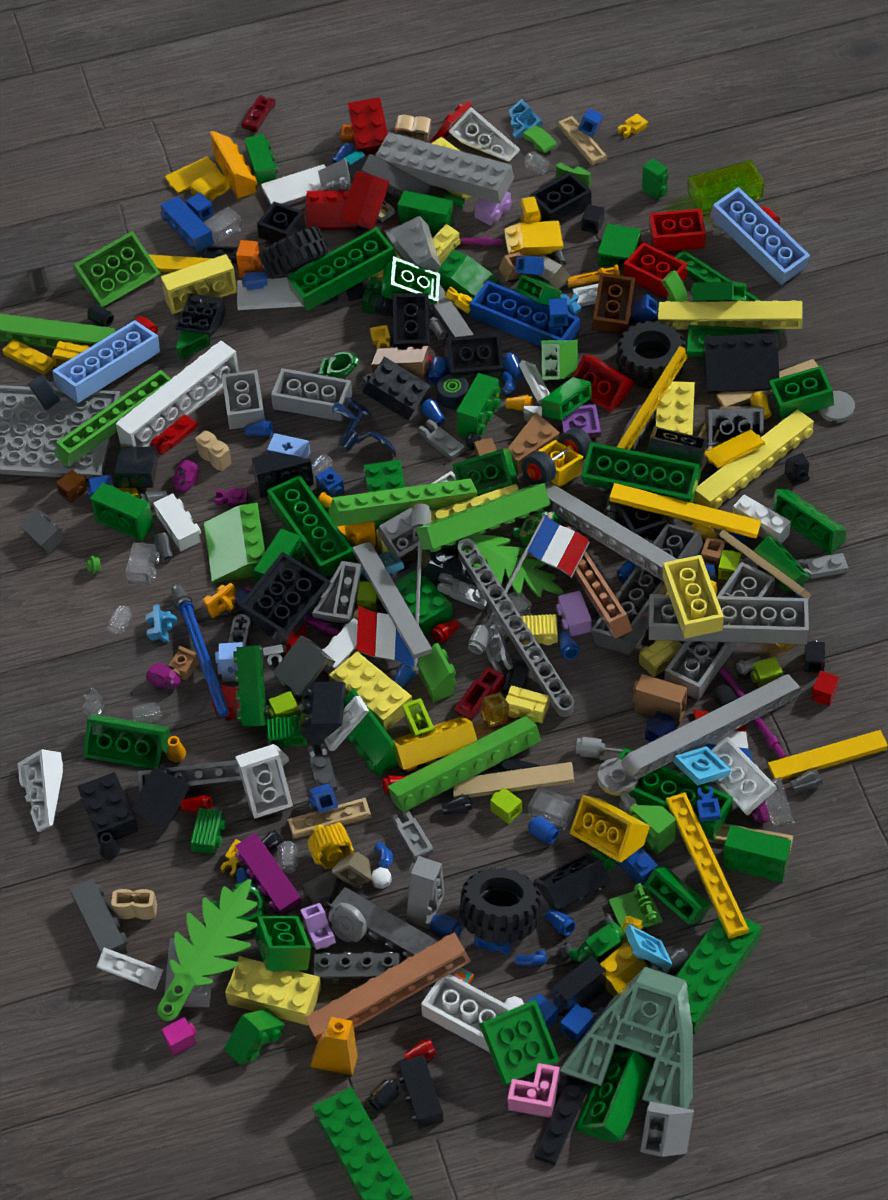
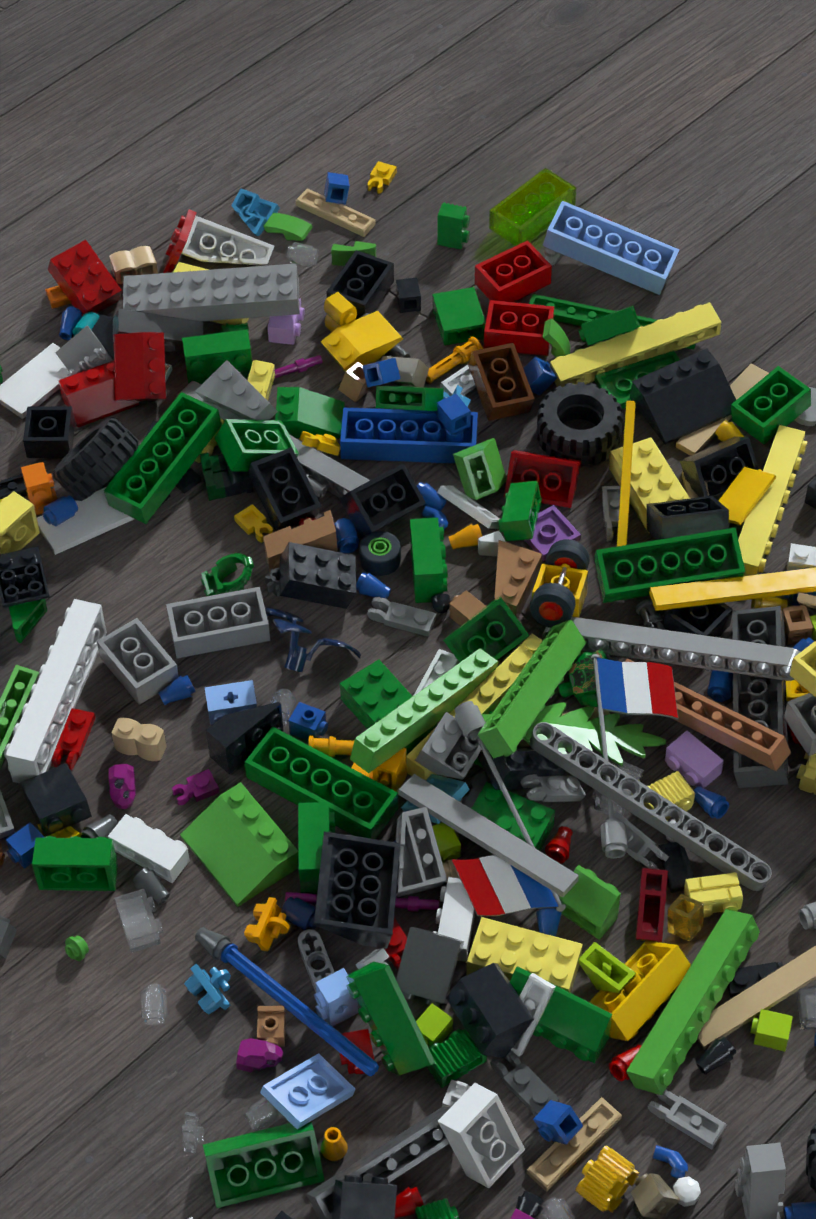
camera: 30 degrees left, 0 degrees up
(178, 710) = (307, 1091): none -> light blue plate

